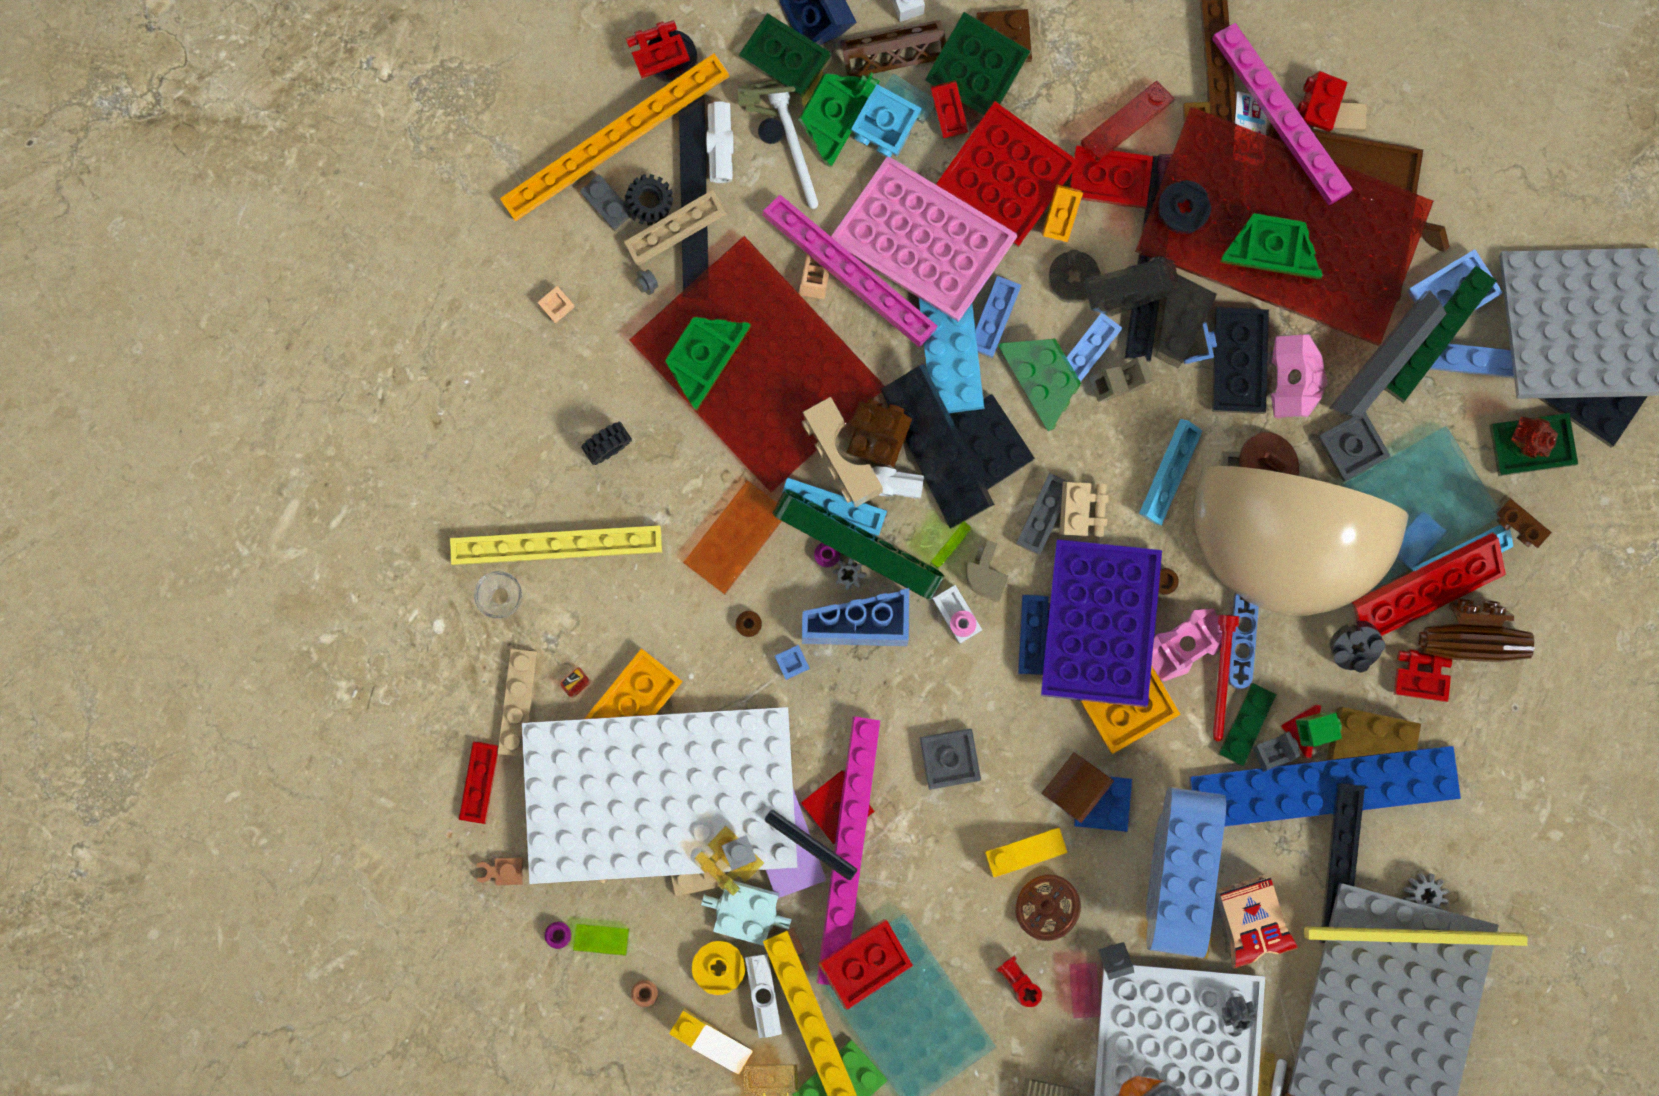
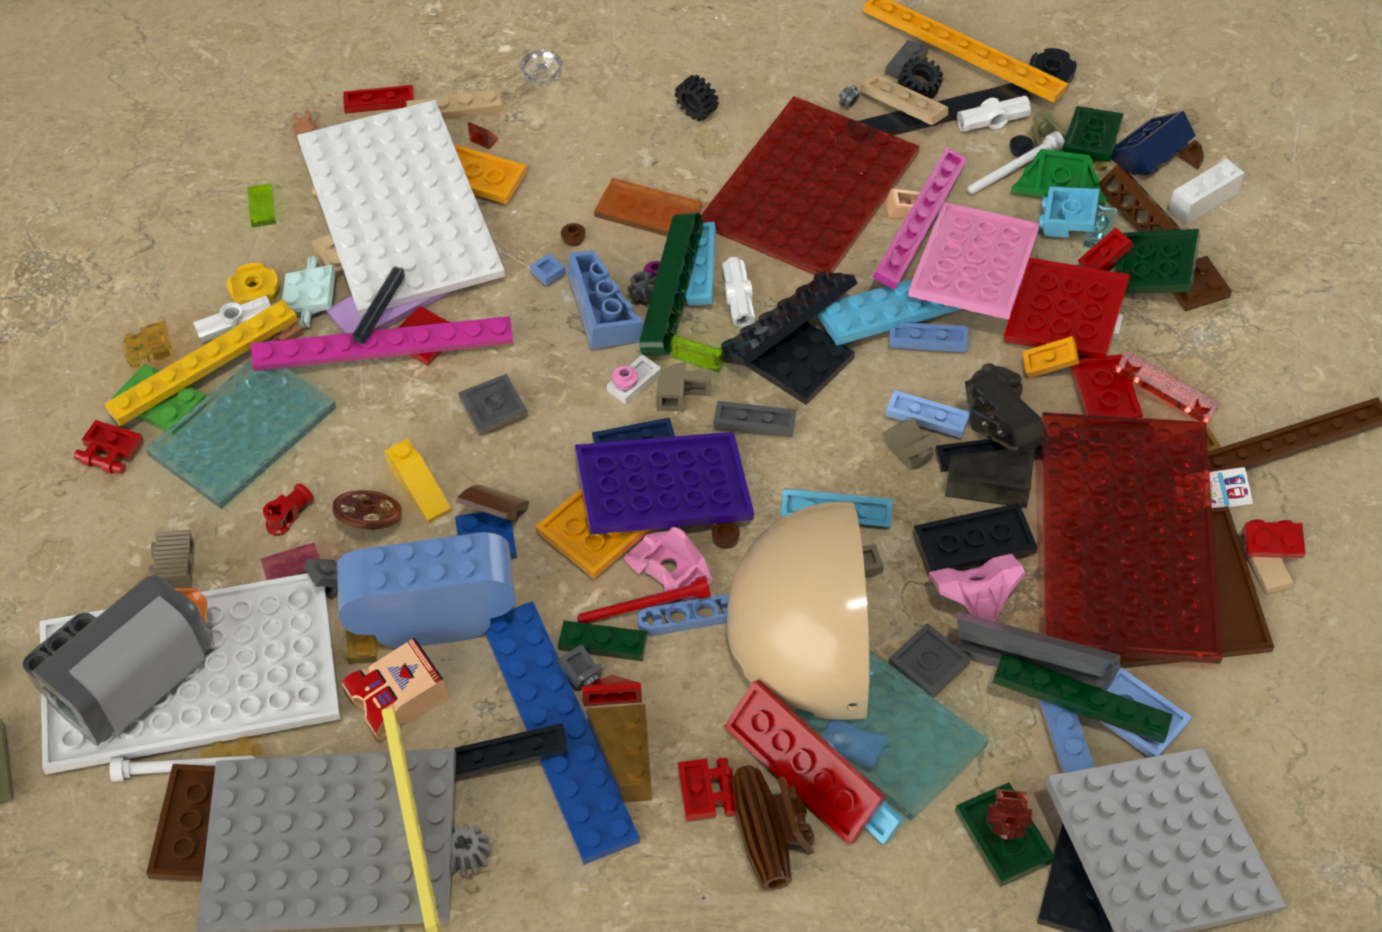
camera: 75 degrees right, 30 degrees down
(549, 935) = (258, 174): magenta plate -> none
(556, 304) = (803, 48): light nougat plate -> none
(556, 545) = (598, 97): light yellow plate -> none
(635, 993) = (219, 241): nougat plate -> none
(660, 55) = (1051, 49): red plate -> none
(703, 355) = (799, 136): green wing -> none
(709, 864) = (354, 256): clear yellow plate -> none
(710, 1041) = (185, 290): slope -> none
(739, 852) = (357, 249): light grey plate -> none
(857, 480) = (770, 228): tan arch -> none
(865, 964) = (276, 370): red plate -> none
(866, 85) = (1094, 181): green plate -> none
(878, 432) = (787, 274): reddish brown plate -> none
(1043, 376) = (887, 383): green wing -> none
(1076, 507) = (768, 438): tan plate -> none
(1198, 202) = (1102, 447): black plate -> none
(1211, 342) = (979, 500): medium blue bracket -> none
(1238, 1013) = (292, 687): dark grey gear -> none
(1269, 453) = (887, 587): copper shield -> none
(1274, 246) = (1100, 519): green wing -> none
(1282, 114) = (1238, 500): dark pink plate -> none
(1319, 729) = (613, 682): green brick -> none
(1359, 658) = (702, 705): black plate -> none
(1436, 236) = (1187, 681): reddish brown tile -> none
(1528, 527) = (911, 829): reddish brown plate -> none

